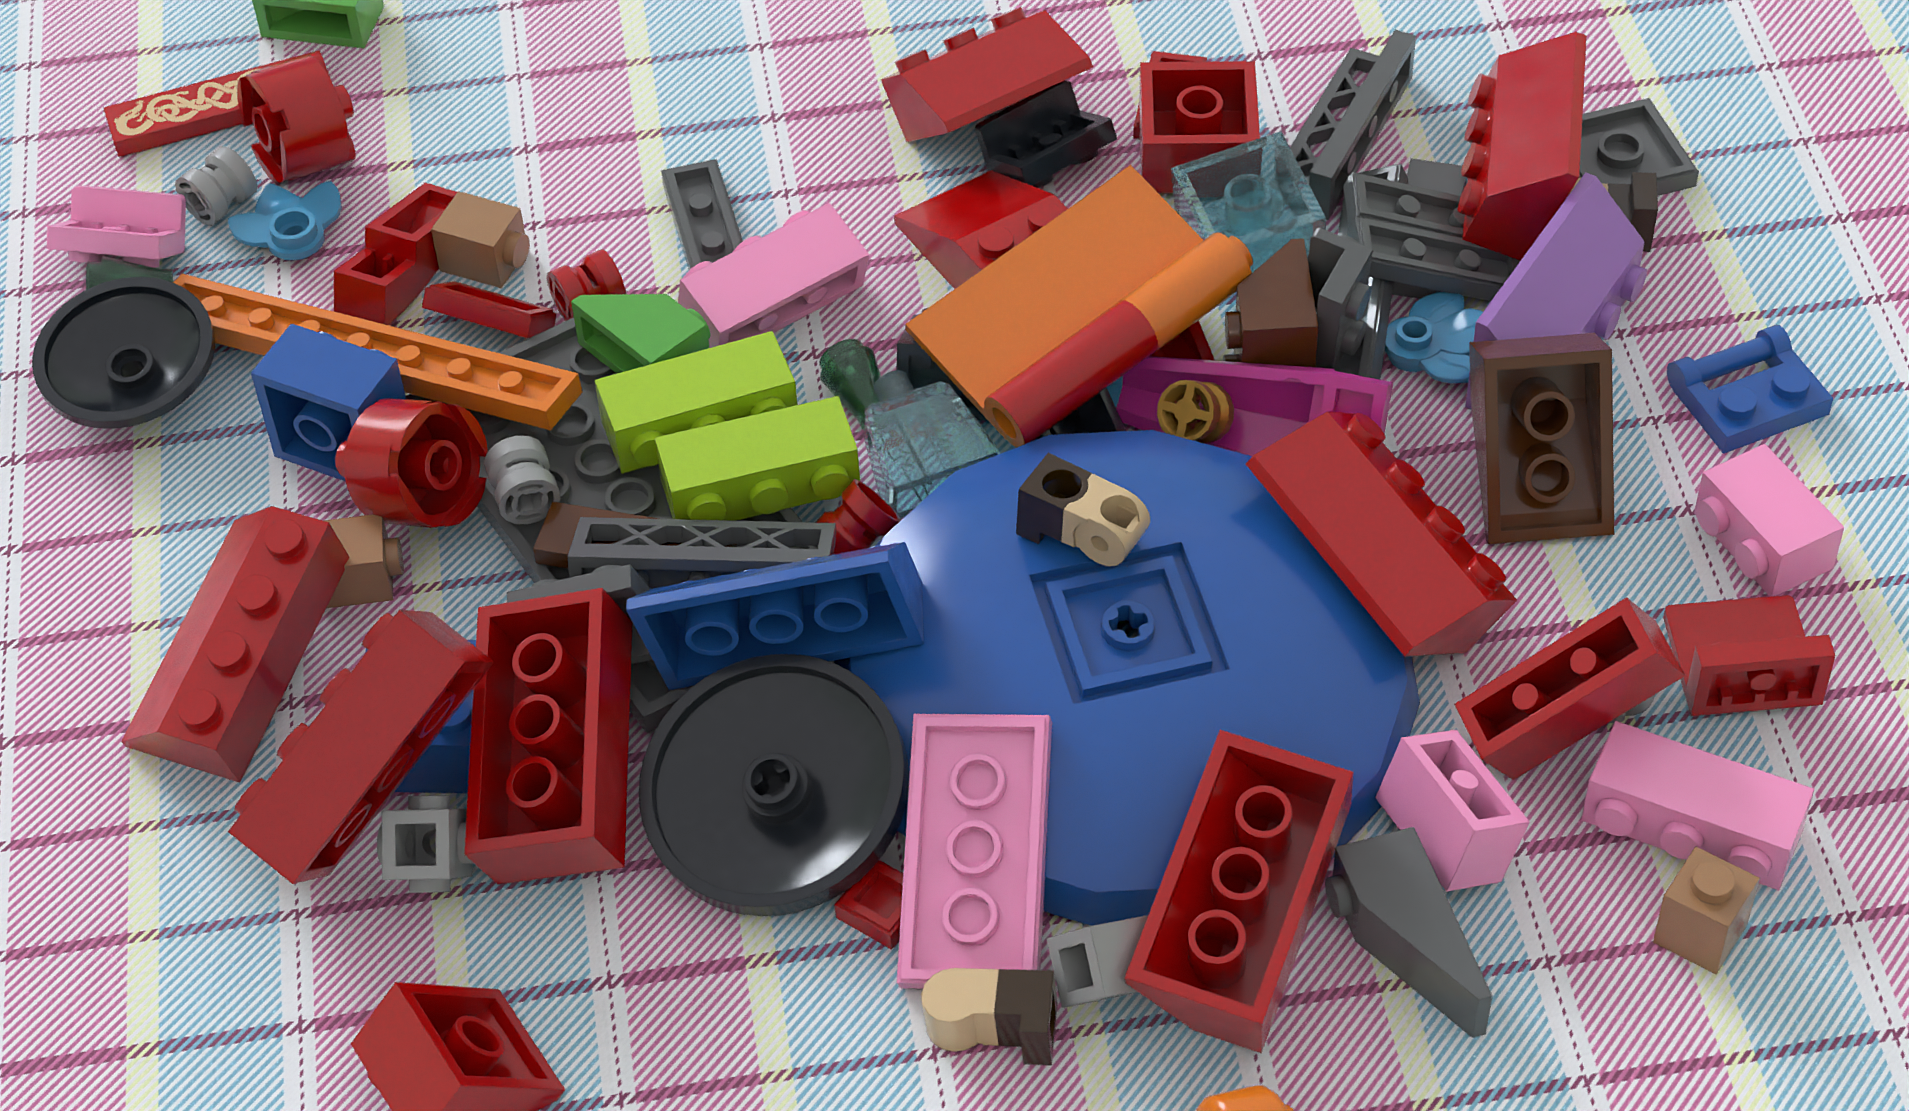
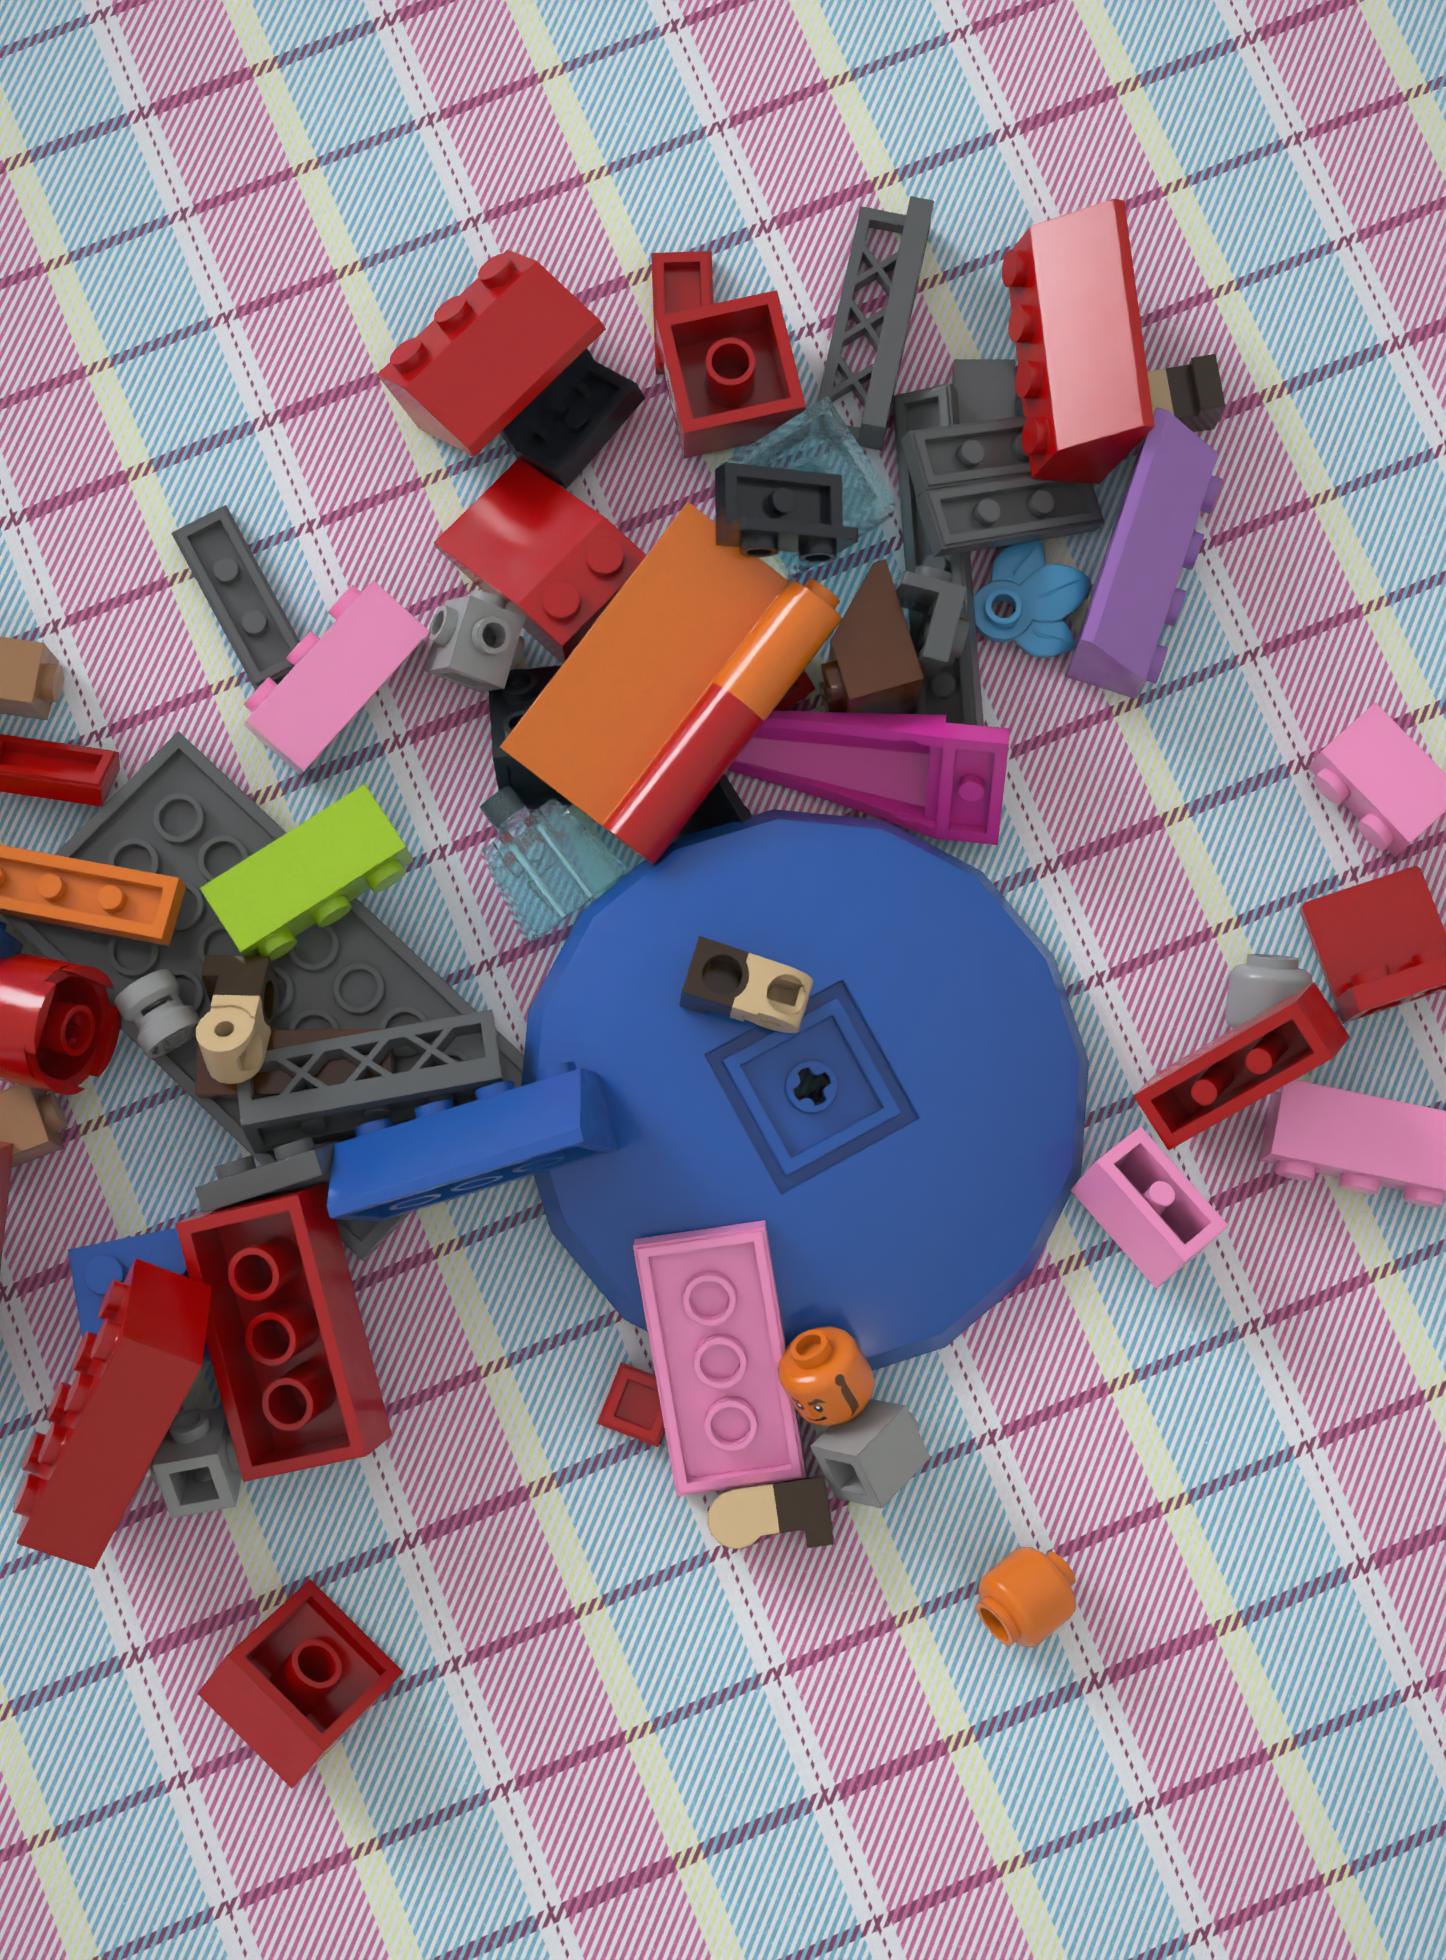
camera: 15 degrees left, 30 degrees up
(590, 487) = (241, 1015): none -> tan leg
(593, 277) = (131, 729): red wheel -> none
(637, 329) = (231, 800): bright green slope -> none
(759, 462) = (392, 945): lime brick -> none
(774, 784) = (509, 1319): black dish -> none
(850, 373) = (454, 786): clear green cone -> none
(860, 518) = (509, 976): red wheel -> none
(907, 274) = (475, 641): none -> light grey brick
(1079, 877) = (826, 1379): none -> orange head
(1180, 410) = (796, 783): pearl gold wheel -> none
(1215, 190) = (781, 511): none -> black bracket
(1241, 888) = (981, 1361): red slope -> none
(1384, 534) = (1029, 912): red slope -> none
(1408, 924) = (1121, 1323): dark grey slope -> none
(1544, 436) = (1161, 737): reddish brown slope -> none
(1634, 140) = (1182, 300): dark grey tile -> none
(1705, 910) = (1394, 1261): medium nougat brick -> none
(1755, 404) = (1353, 618): blue plate -> none

